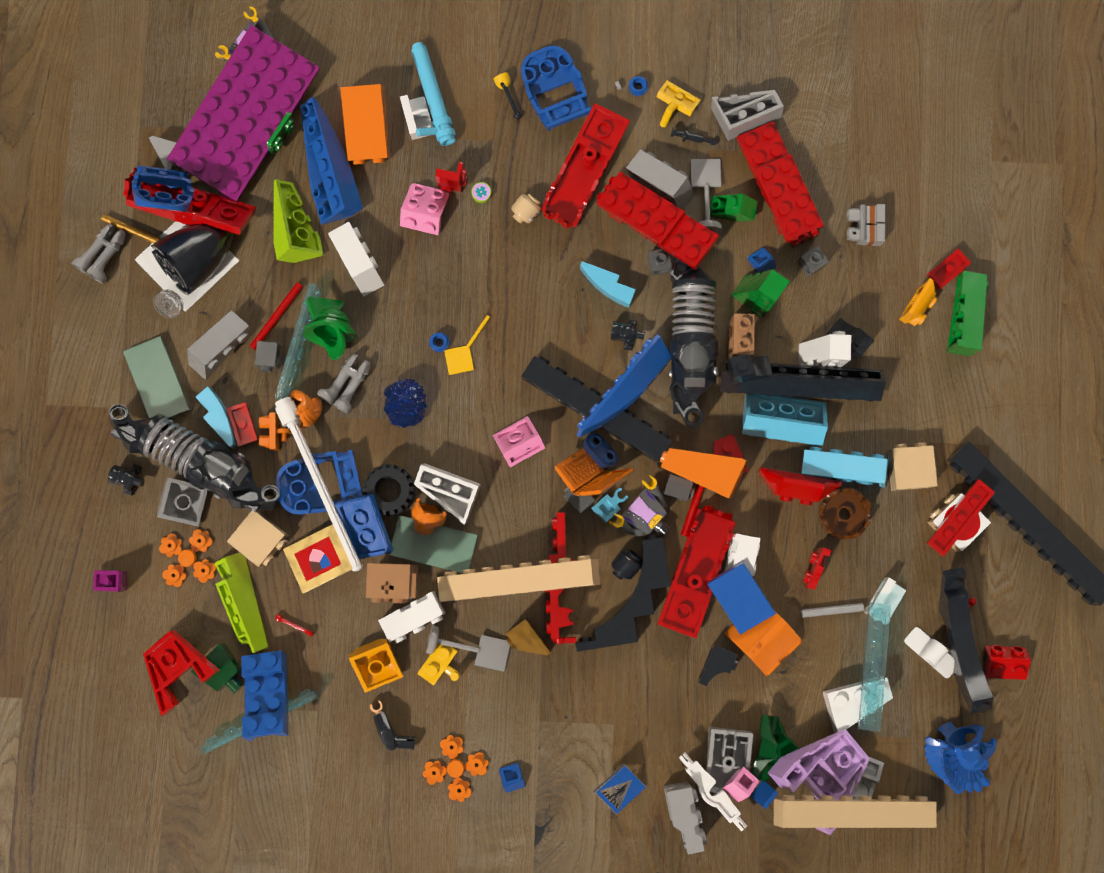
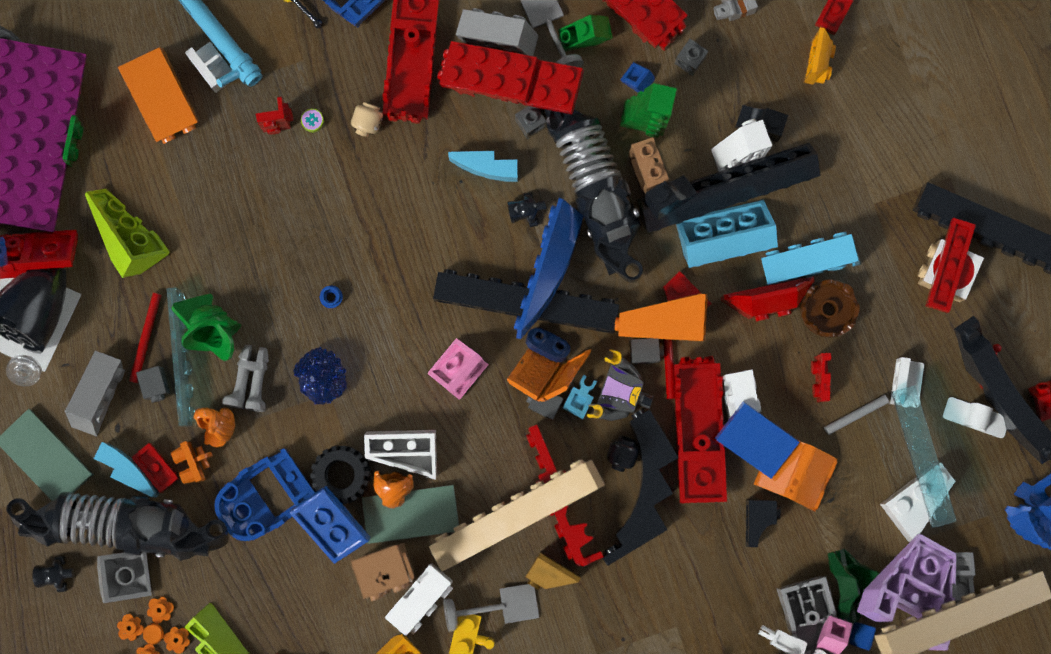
camera: 25 degrees left, 0 degrees up
(258, 539) = (221, 583): tan piece -> none
(328, 167) = (137, 156): blue wedge -> none
(330, 549) = (303, 563): flag -> none
(356, 259) = (206, 242): white wedge -> none
(423, 208) = (257, 161): bright pink bracket -> none
(460, 358) = (360, 306): yellow piece -> none
(912, 467) = (879, 232): tan piece -> none
(968, 314) = (874, 49): green wedge -> none

